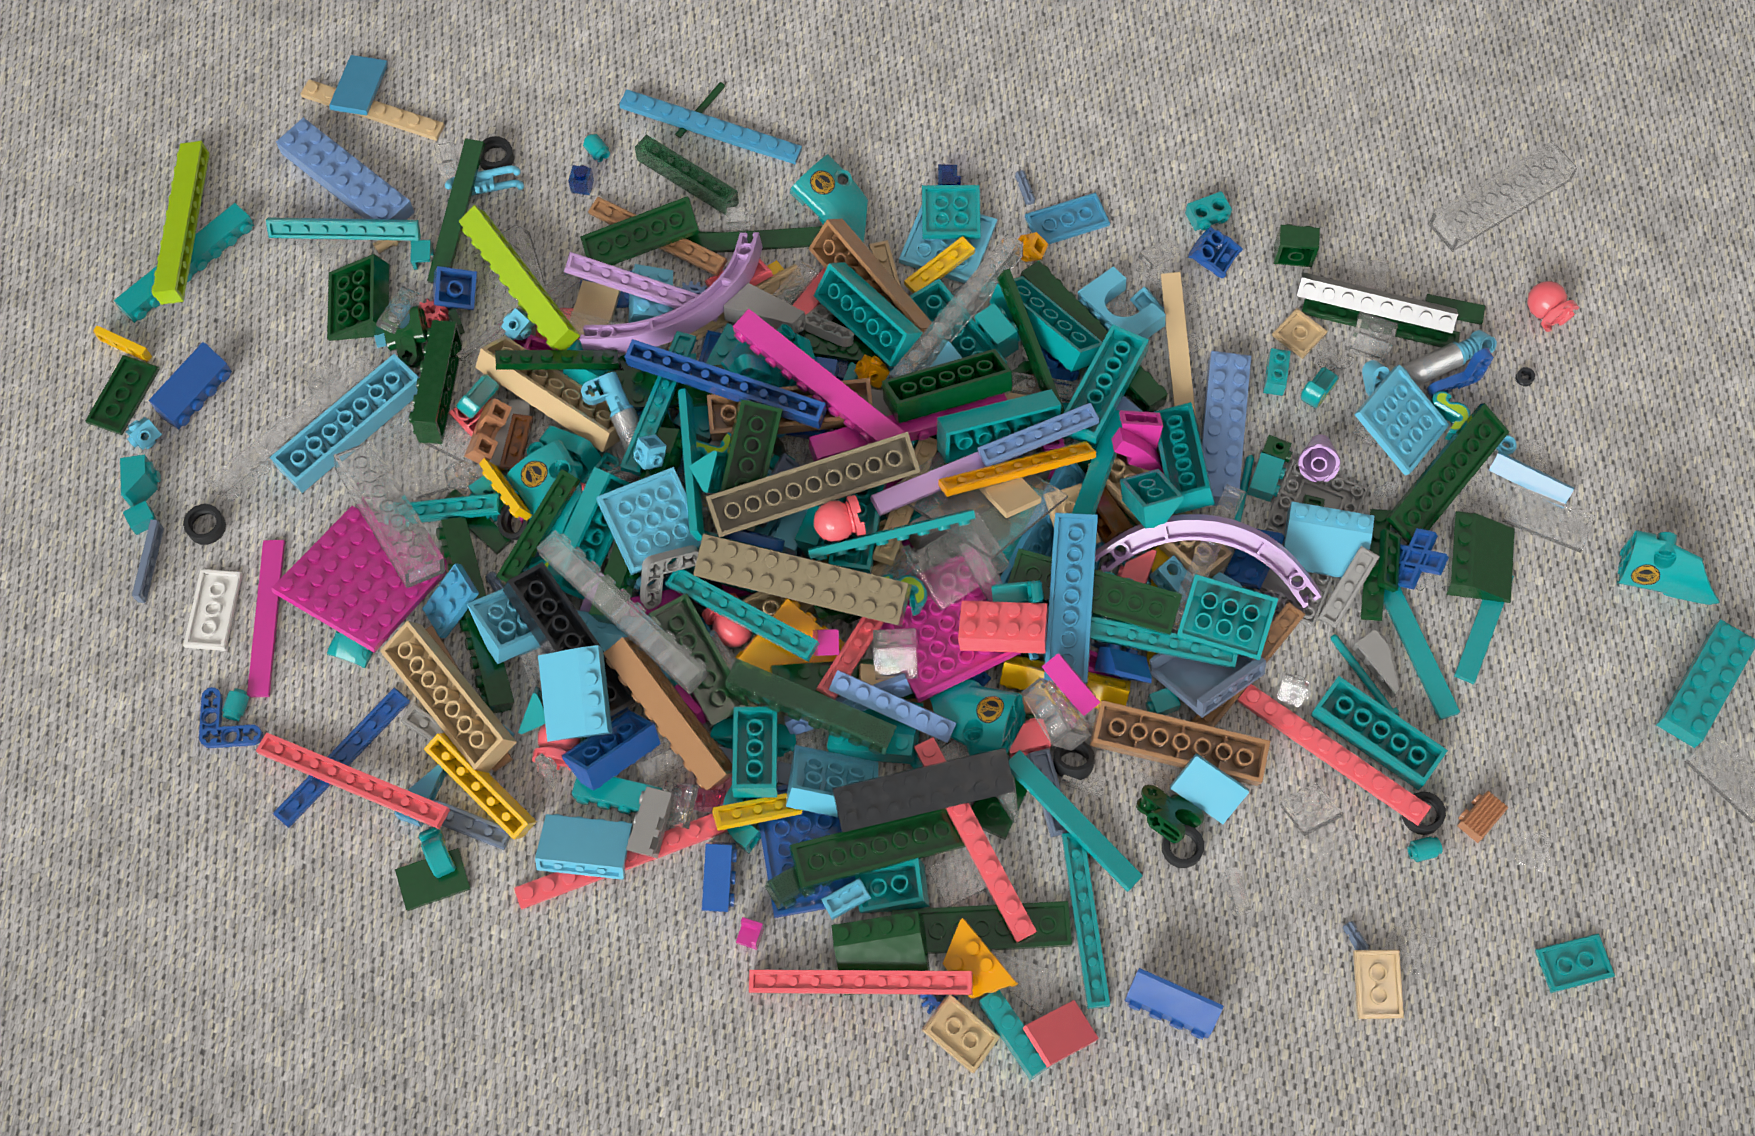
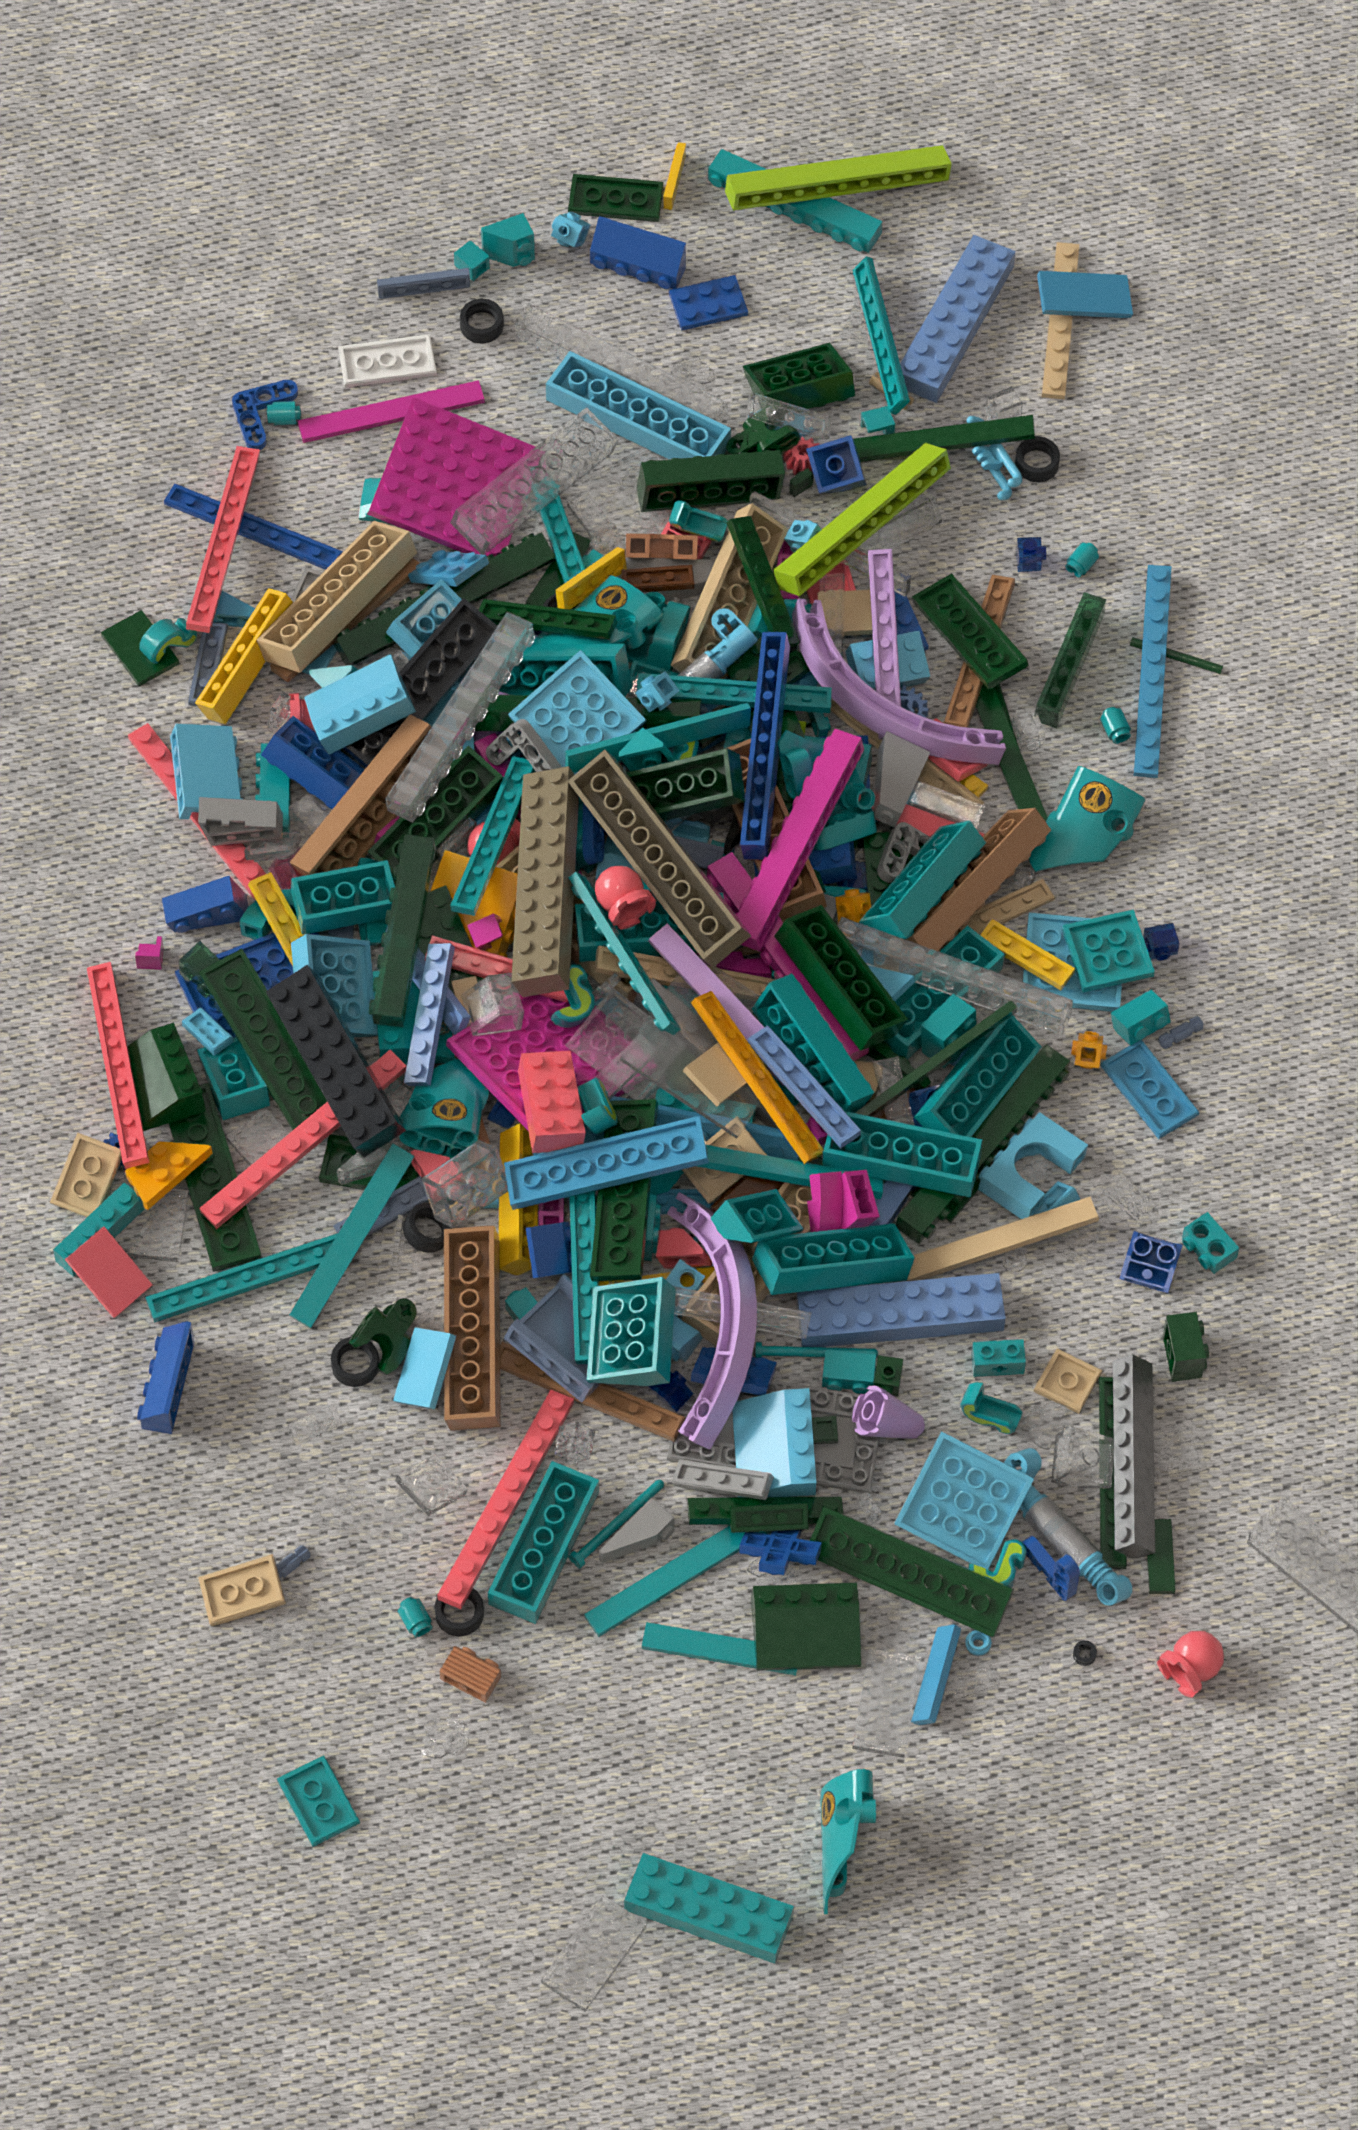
camera: 75 degrees right, 5 degrees down
(255, 350) = (708, 302): none -> blue plate
(750, 162) = (1115, 725): none -> teal brick
(1010, 207) = (1140, 1017): none -> teal brick
(1071, 684) = (501, 1183): dark pink slope -> none

